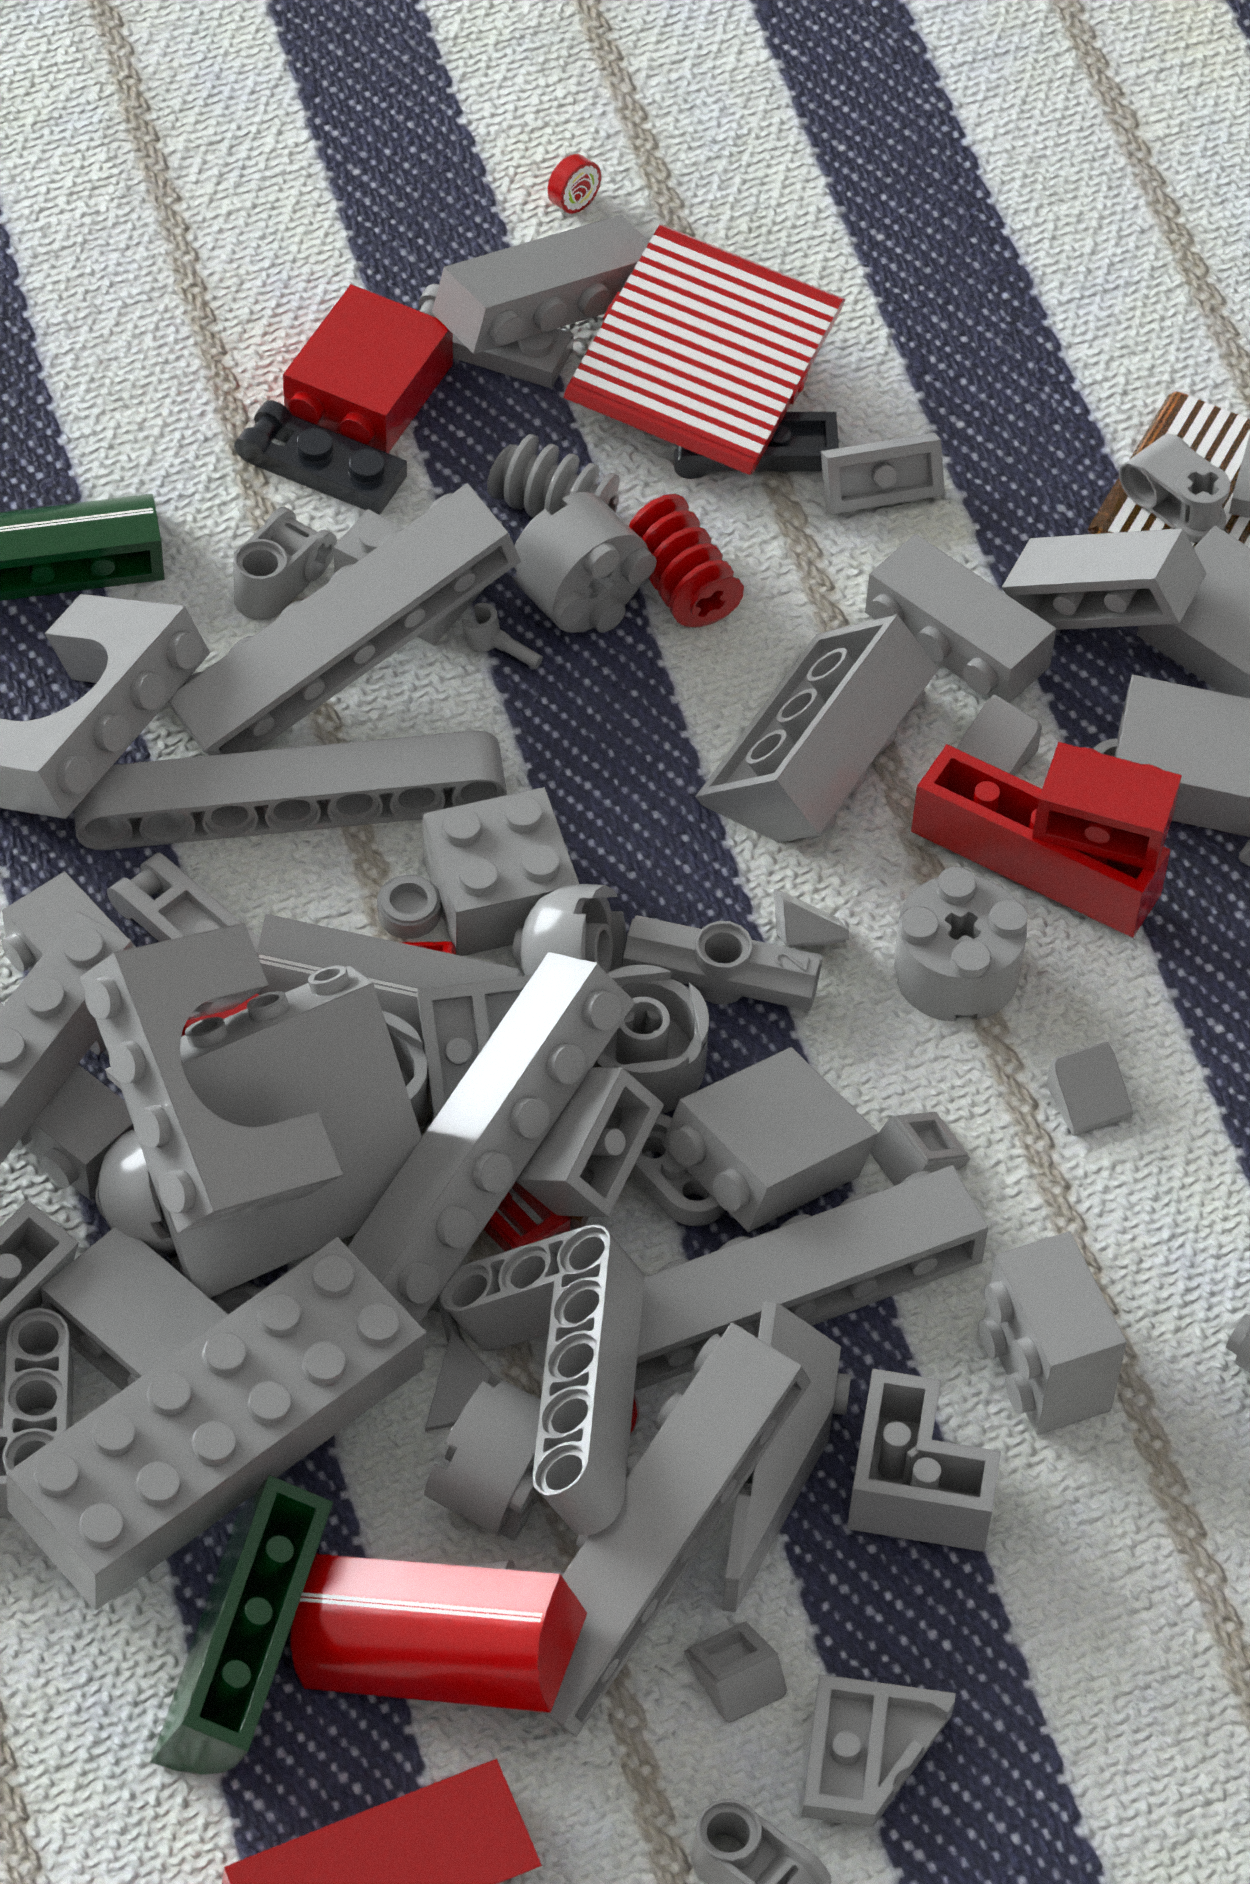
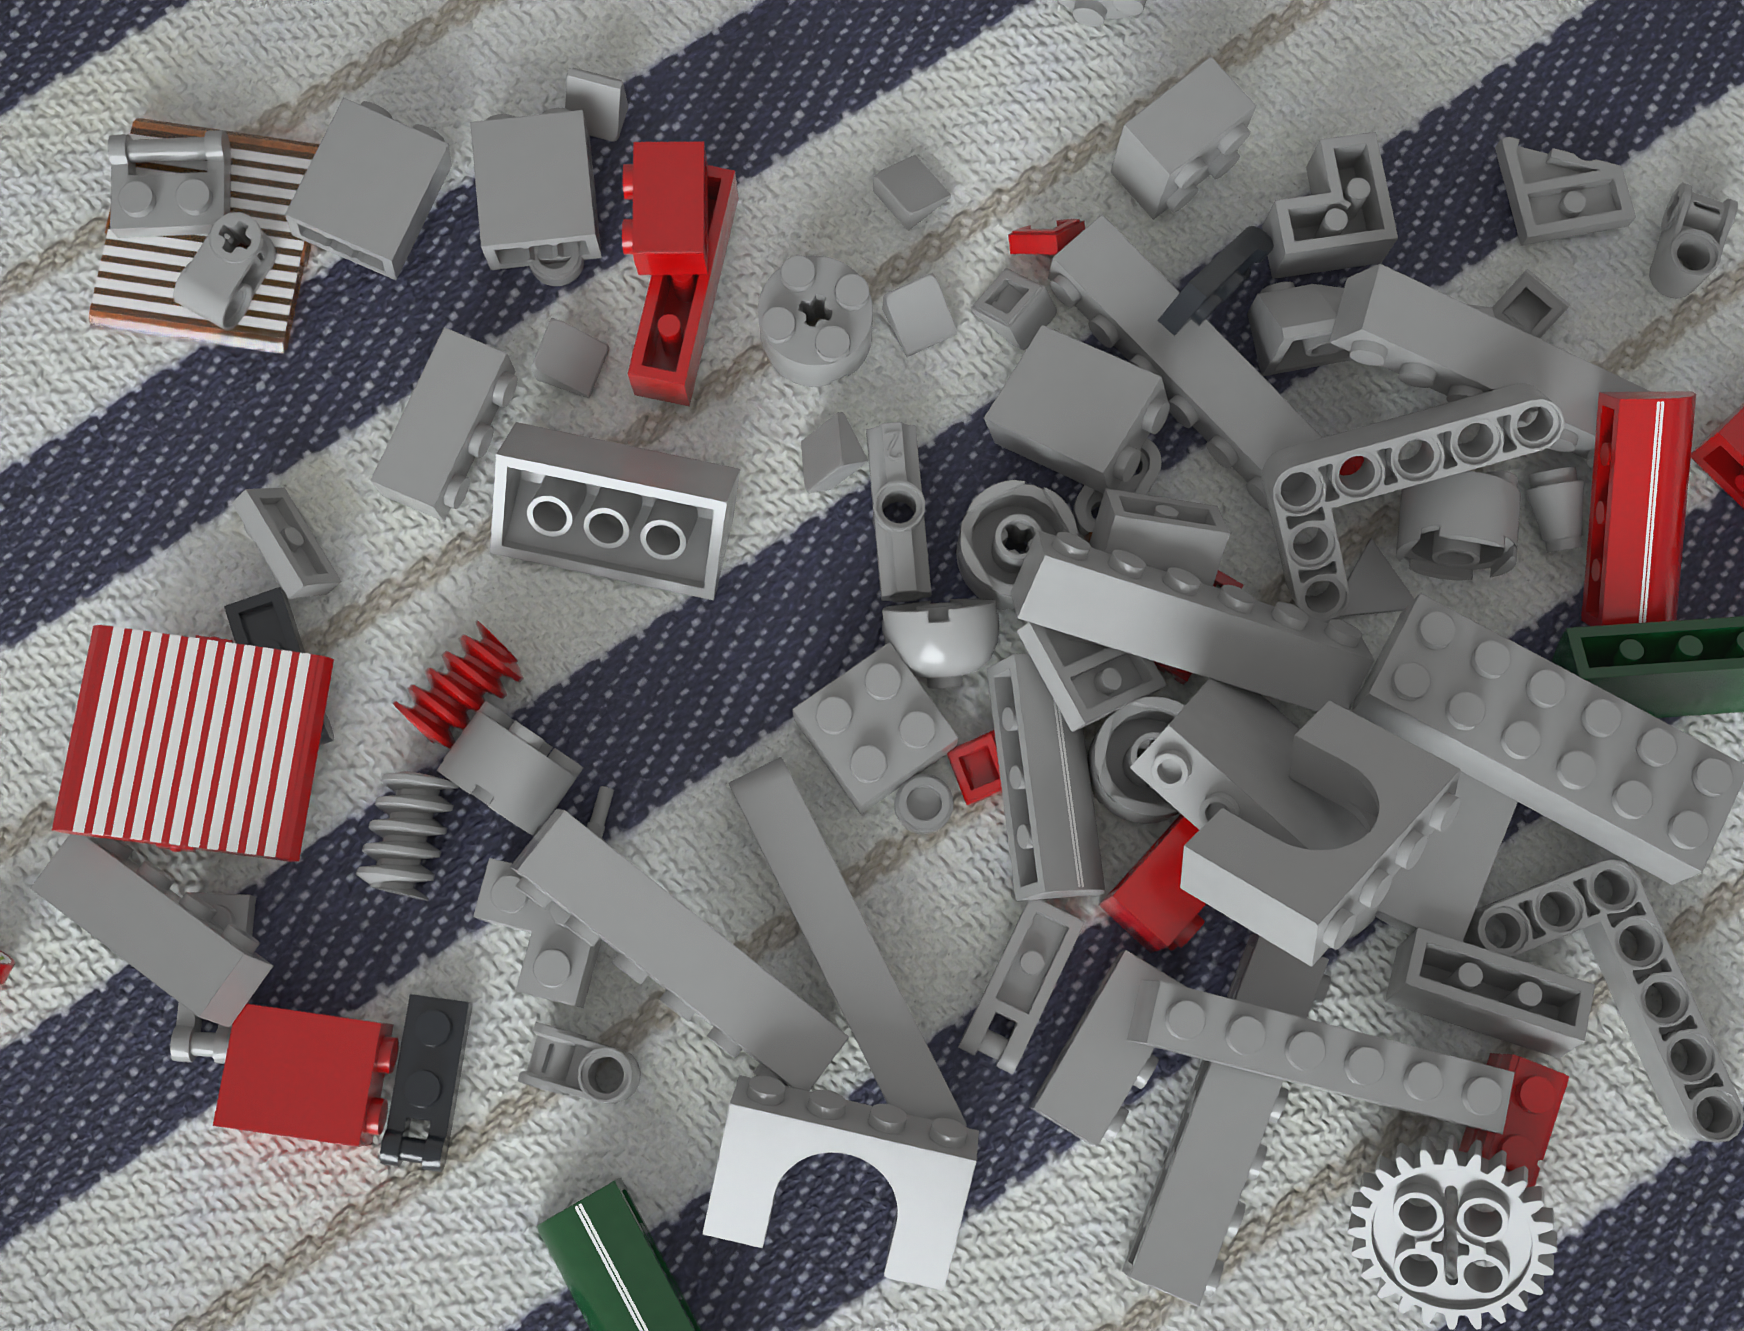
camera: 110 degrees left, 25 degrees up
(869, 1298) = (1217, 280): none -> black plate
(940, 1055) = (919, 314): none -> light grey slope
(985, 1187) = (1045, 240): none -> red tile
(1107, 578) = (378, 294): light grey brick -> none

